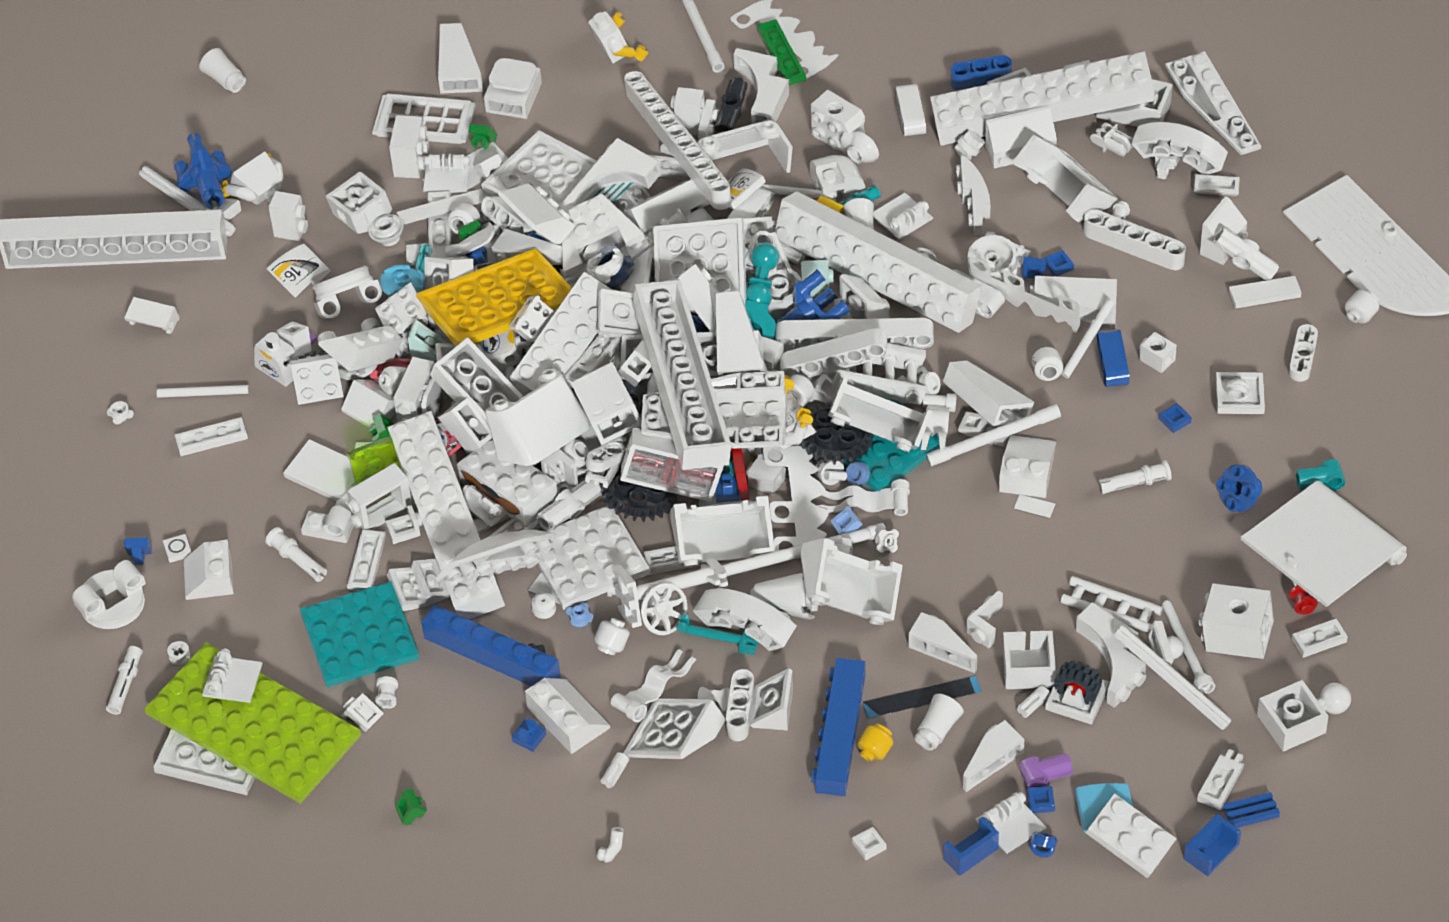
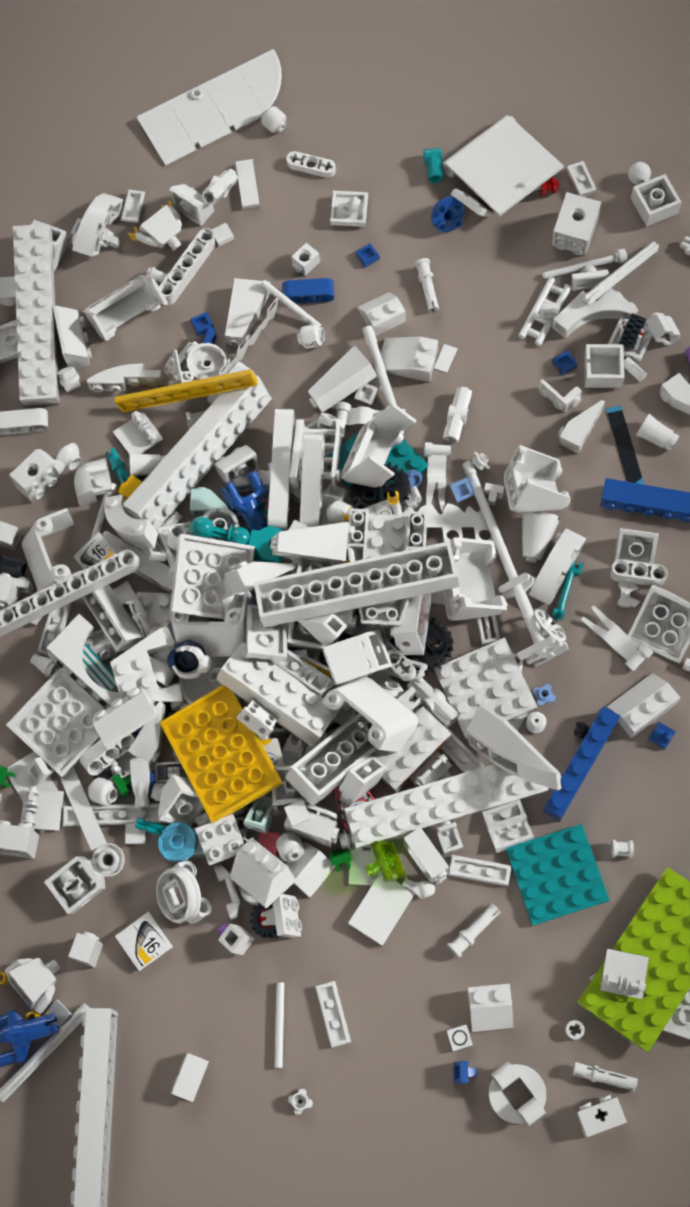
camera: 85 degrees left, 20 degrees up
(79, 674) = (591, 1125): none -> white brick
(274, 358) = (255, 955): white torso -> none
(334, 526) = (441, 905): white plate -> none
(362, 712) = (641, 869): white bracket -> none
(422, 363) = (297, 812): none -> white tile
(611, 636) = (573, 667): white head -> none
(767, 199) = (131, 530): none -> white brick
(875, 742) = (675, 477): yellow head -> none
(948, 237) = (186, 390): none -> yellow tile
(950, 515) = (457, 414): none -> white piece
(967, 233) = (174, 373): none -> white hinge
(1036, 623) = (564, 363): none -> blue tile
(1088, 433) = (383, 313): none -> white slope
(1089, 721) = (663, 328): none -> white brick
(1104, 596) = (549, 310): none -> white tile
(1112, 139) = (78, 272): white arm -> none
(1181, 208) = (160, 228): none -> white torso
(1187, 272) = (223, 234): none -> white tile
(1211, 99) = (50, 196): white wedge -> none
(1255, 505) = (472, 203): none -> white tile

